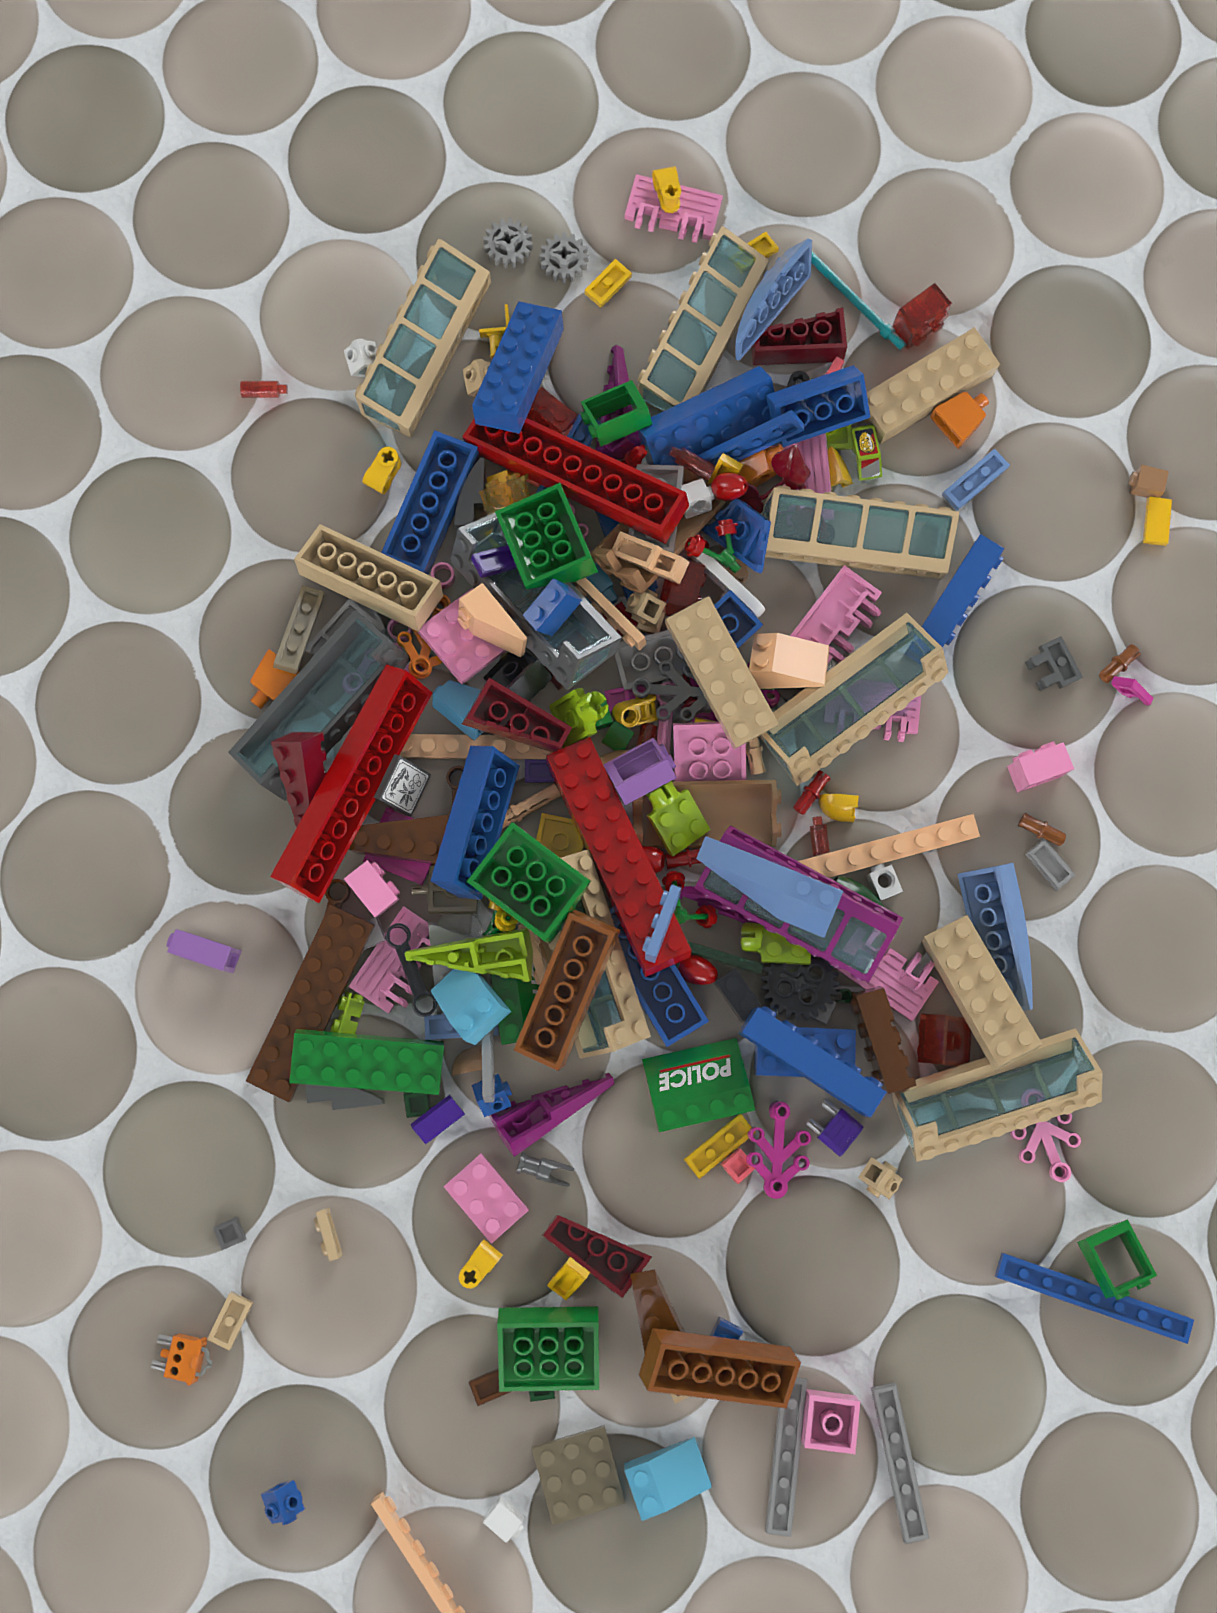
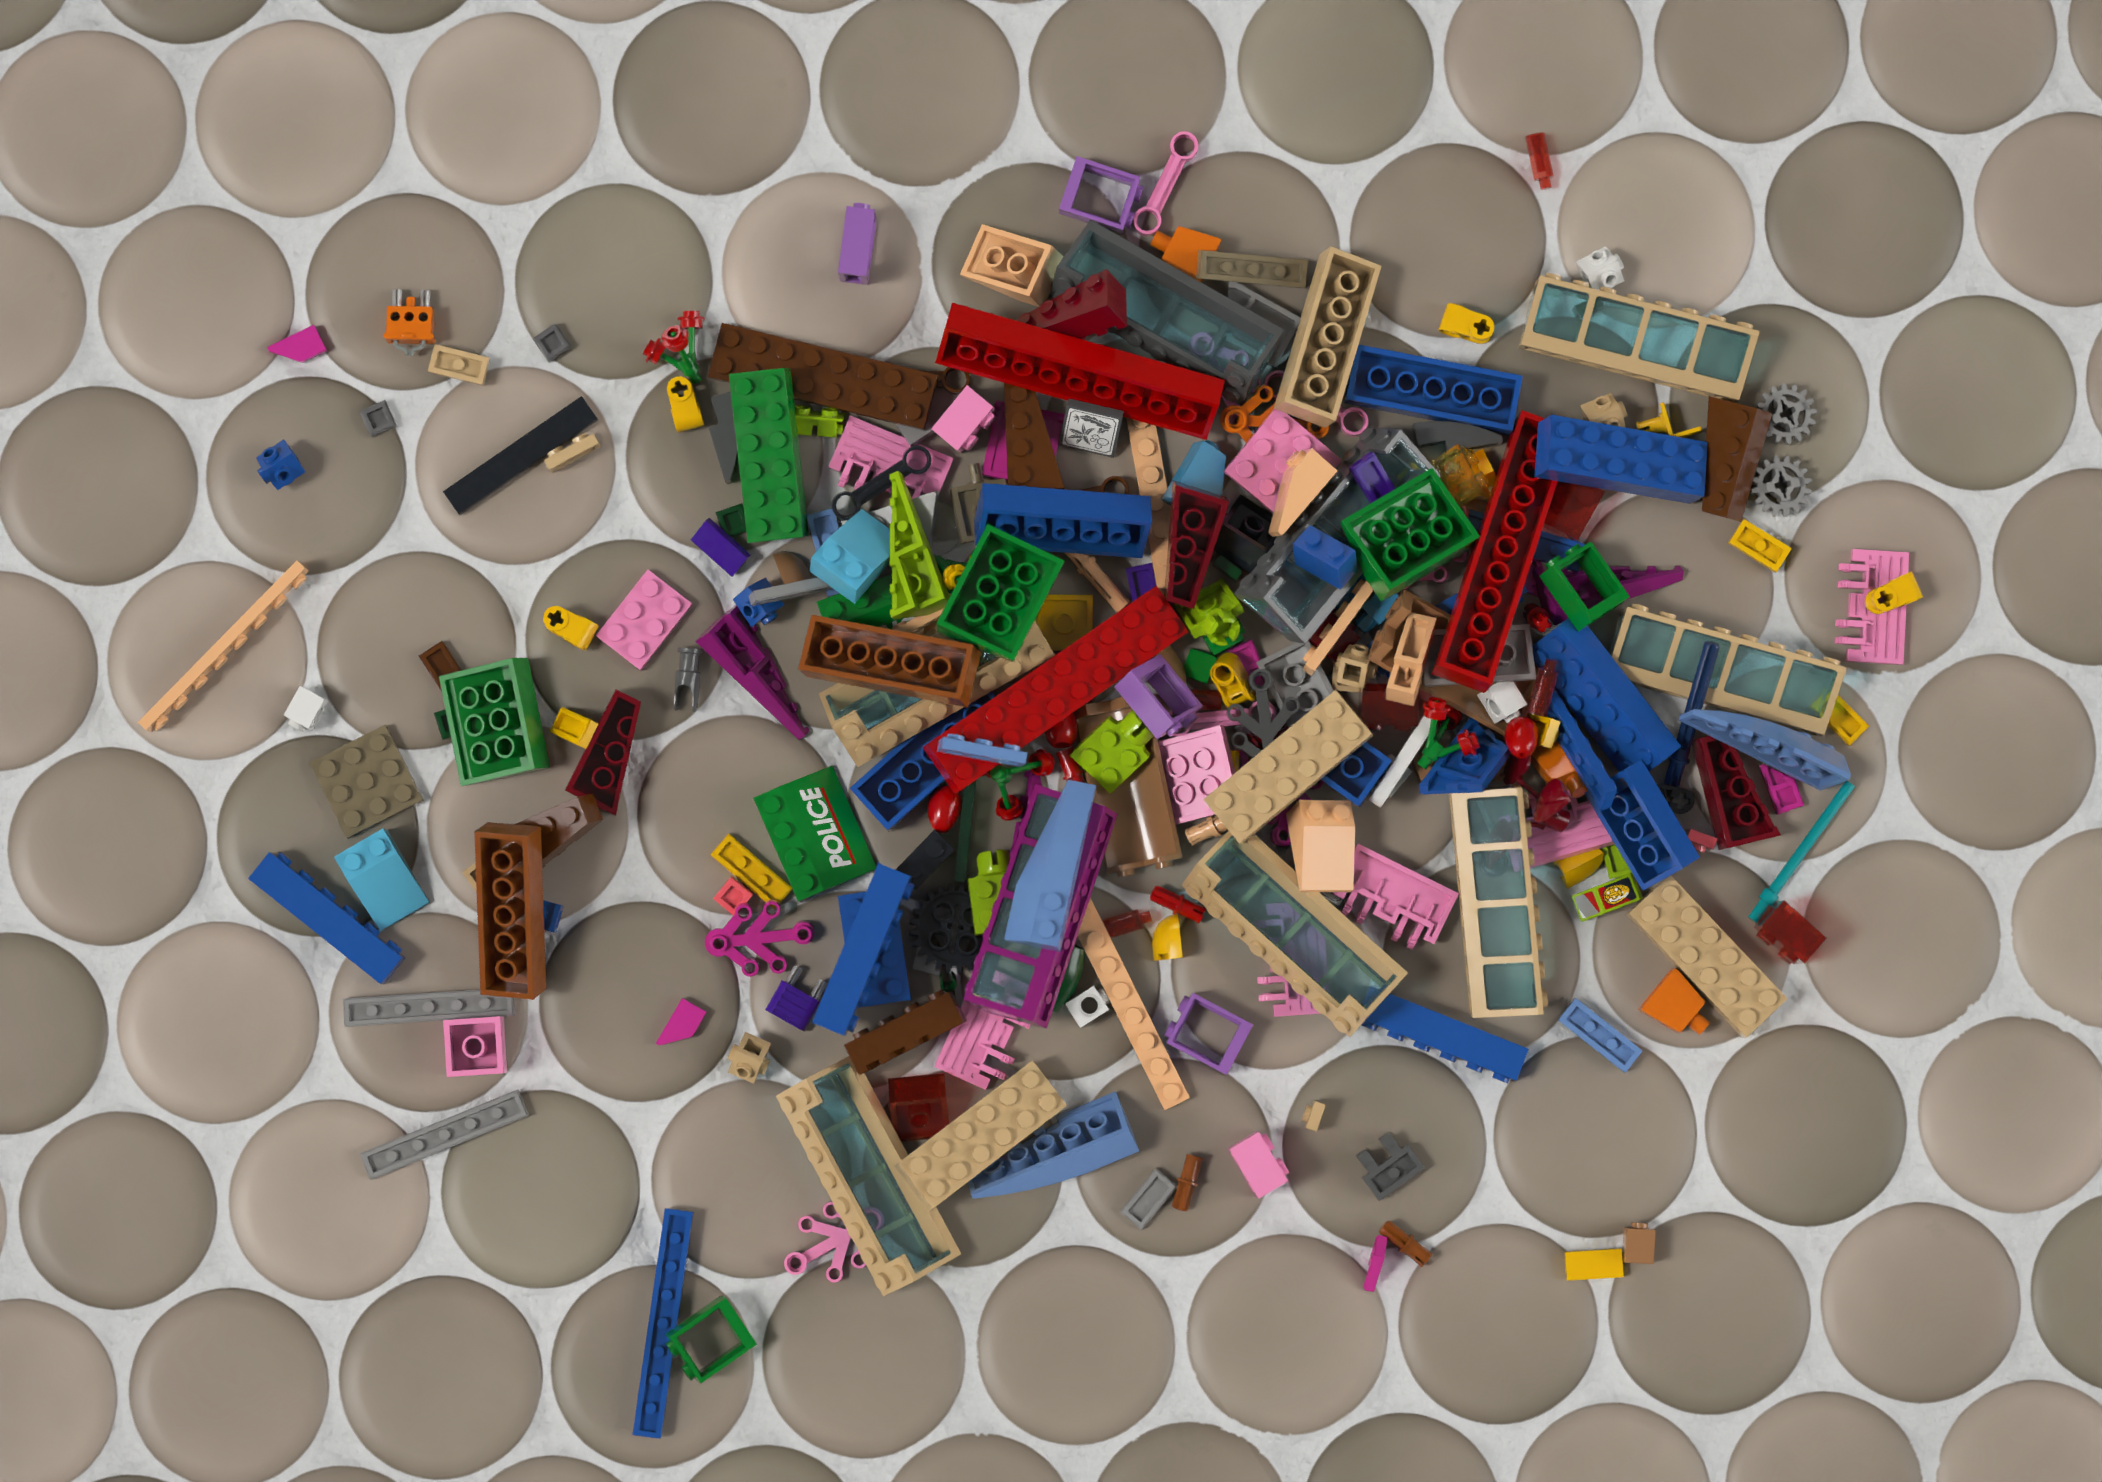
camera: 80 degrees right, 5 degrees up
(181, 1461) = (300, 346): none -> dark pink tile
(192, 731) = (1082, 165): none -> medium lavender window
(213, 687) = (1165, 183): none -> bright pink piece
(249, 1123) = (676, 339): none -> red plant
(251, 824) = (1012, 265): none -> light nougat slope
(261, 1402) = (378, 418): none -> flat silver tile
(312, 1127) = (685, 409): none -> yellow piece
(321, 1281) = (520, 455): none -> black tile
(523, 281) = (1733, 452): none -> reddish brown wedge
(543, 697) = (1227, 568): none -> dark green tile
(692, 1535) = (327, 918): none -> blue brick
(728, 350) = (1695, 701): none -> dark blue axle
(803, 306) = (1781, 790): none -> dark pink tile
(839, 1231) = (682, 1023): none -> dark pink tile
(937, 769) = (1234, 1046): none -> medium lavender window
(1004, 716) = (1312, 1115): none -> tan plate

